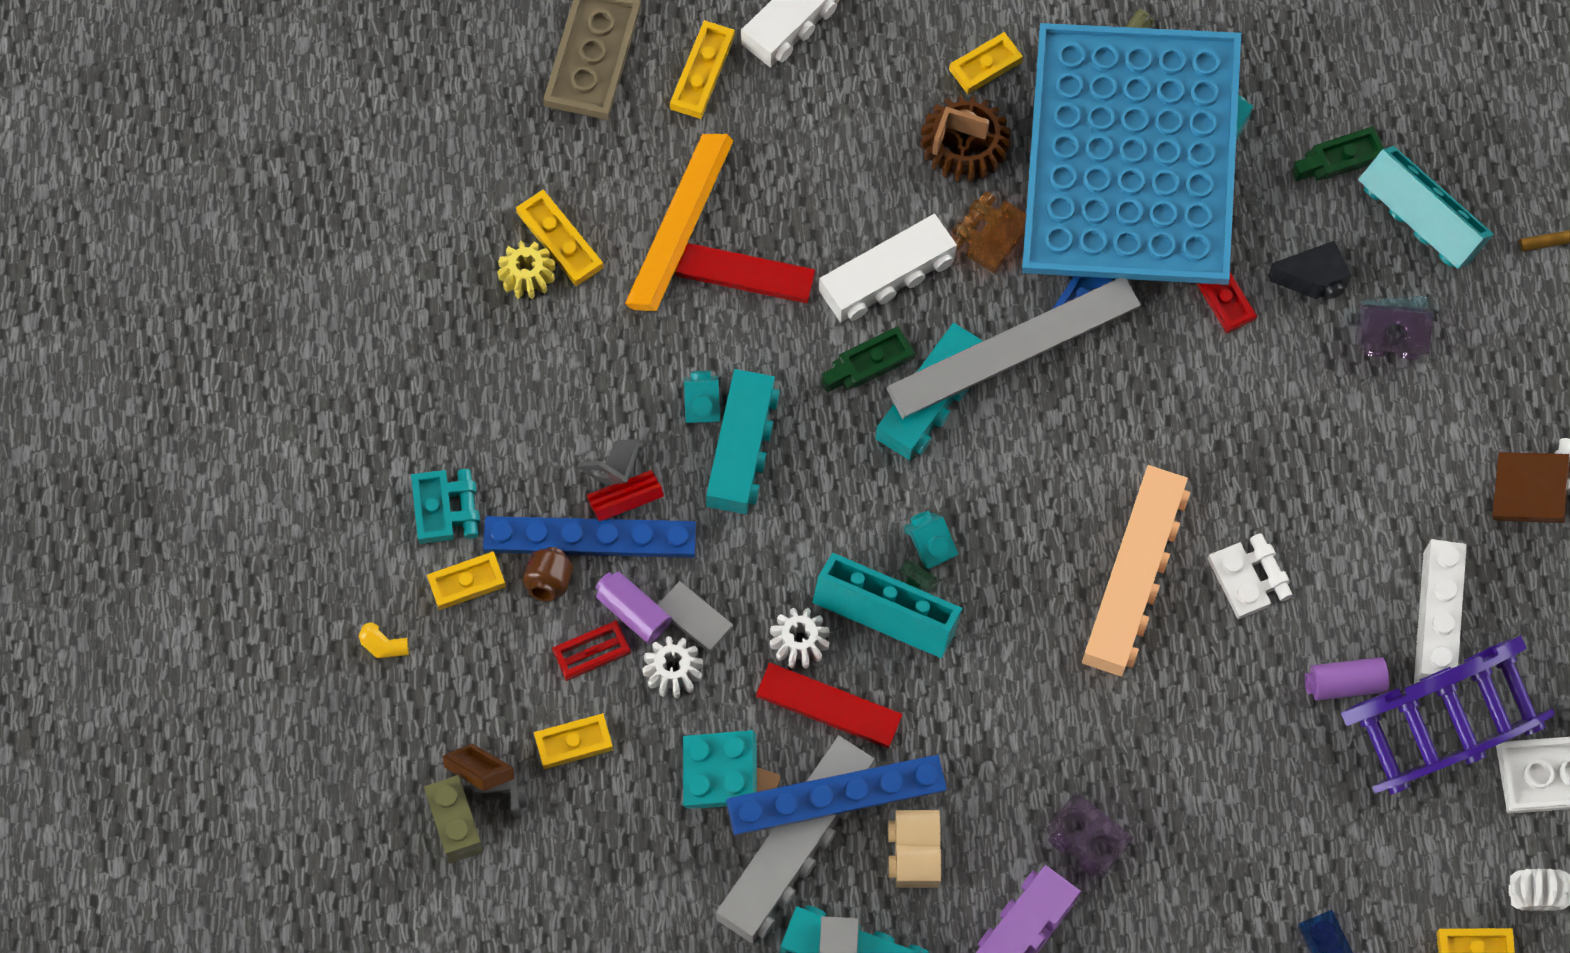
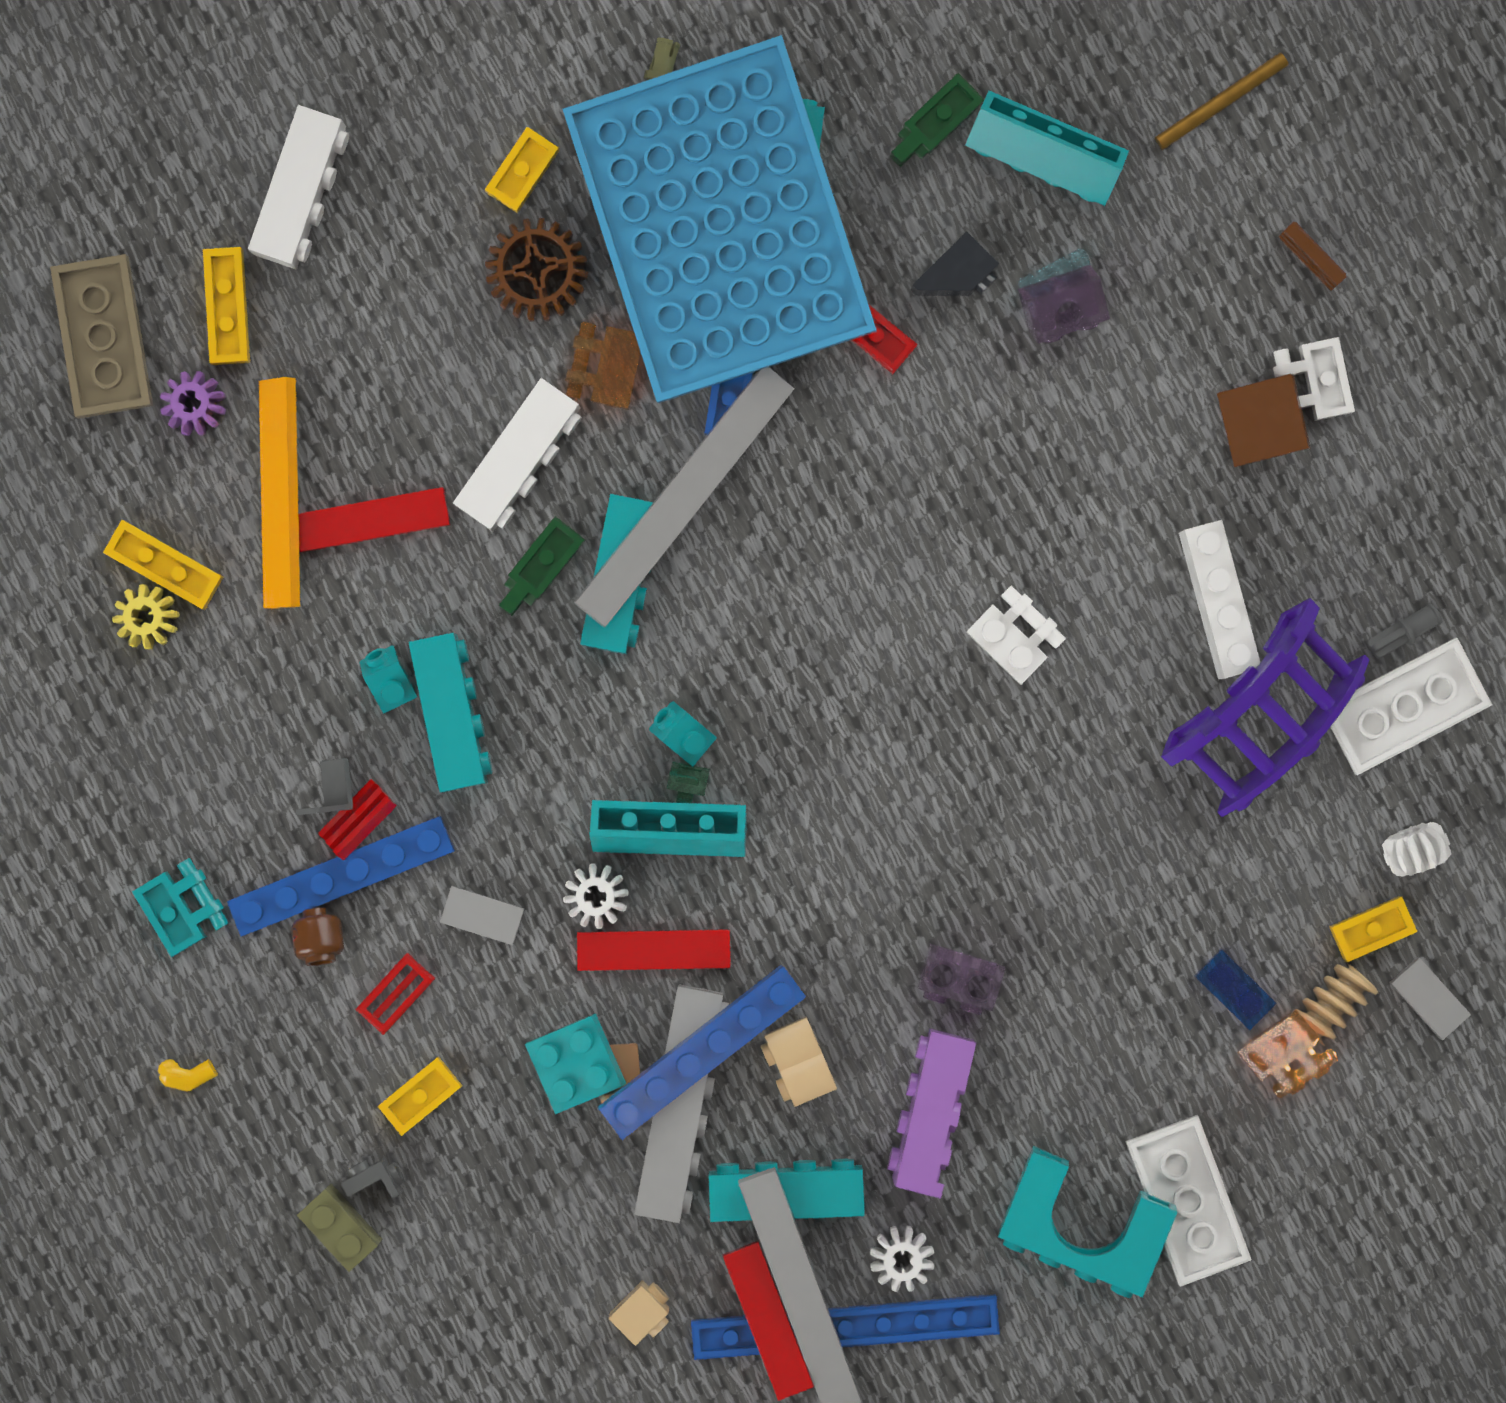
camera: 25 degrees left, 20 degrees up
(466, 580) = (239, 977): yellow plate -> none
(478, 767) = (340, 1169): reddish brown tile -> none
(632, 606) = (416, 934): medium lavender brick -> none
(641, 138) = (203, 392): none -> medium lavender gear
(657, 668) = (470, 982): white gear -> none
(961, 121) = (527, 262): medium nougat bracket -> none
(1135, 570) = (900, 681): light nougat brick -> none
(1347, 679) = (1152, 706): medium lavender brick -> none

